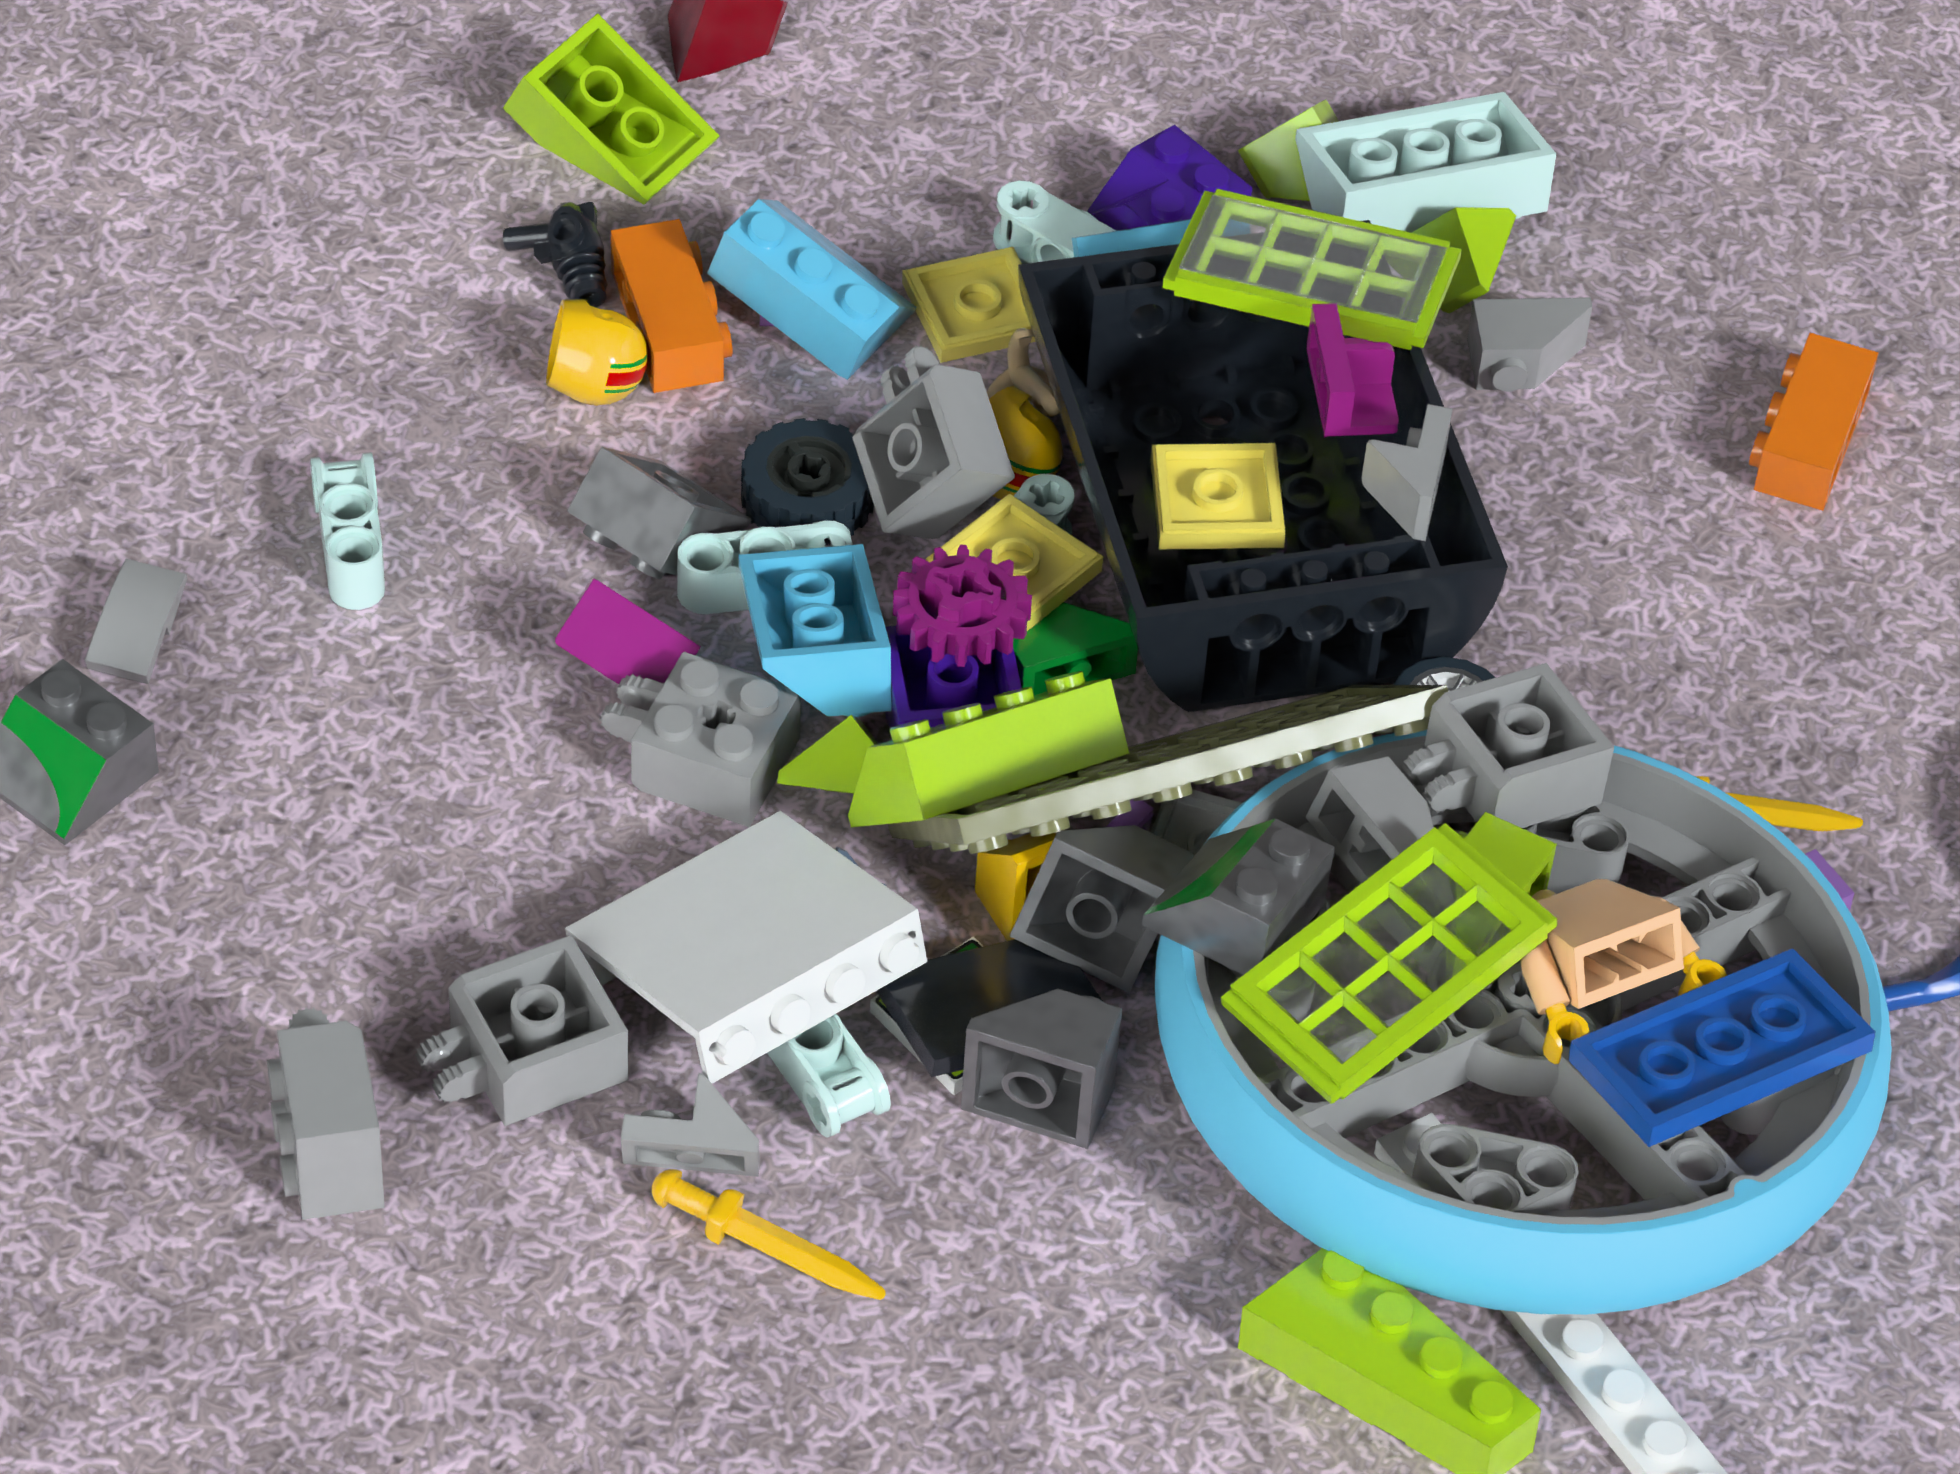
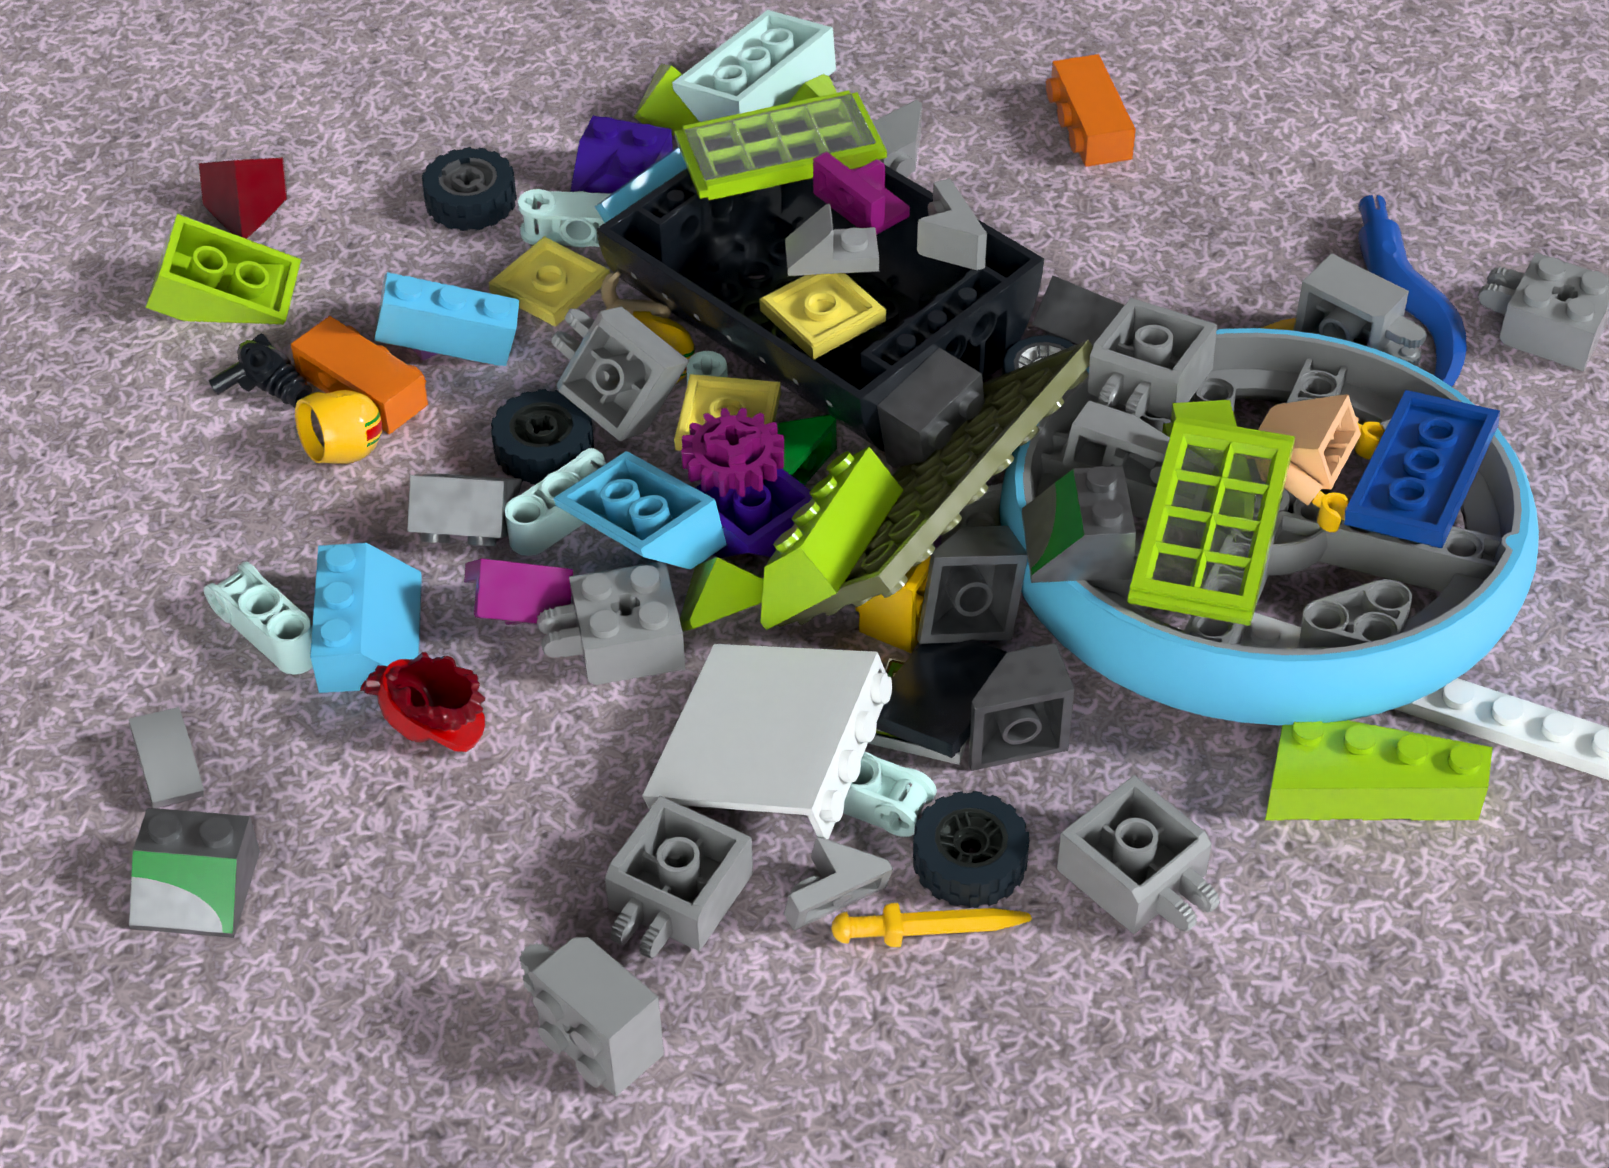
camera: 30 degrees left, 0 degrees up
(438, 708) = (430, 700): none -> dark red hair
(448, 583) = (362, 614): none -> medium azure slope
(885, 1156) = (964, 823): none -> black wheel
(973, 144) = (469, 189): none -> black wheel
(1035, 1294) = (1139, 858): none -> light grey hinge
(1240, 672) = (929, 408): none -> flat silver slope
(1252, 425) = (821, 250): none -> light grey slope
(1578, 658) = (1074, 312): none -> flat silver slope
(1878, 840) = (1359, 308): none -> light grey hinge

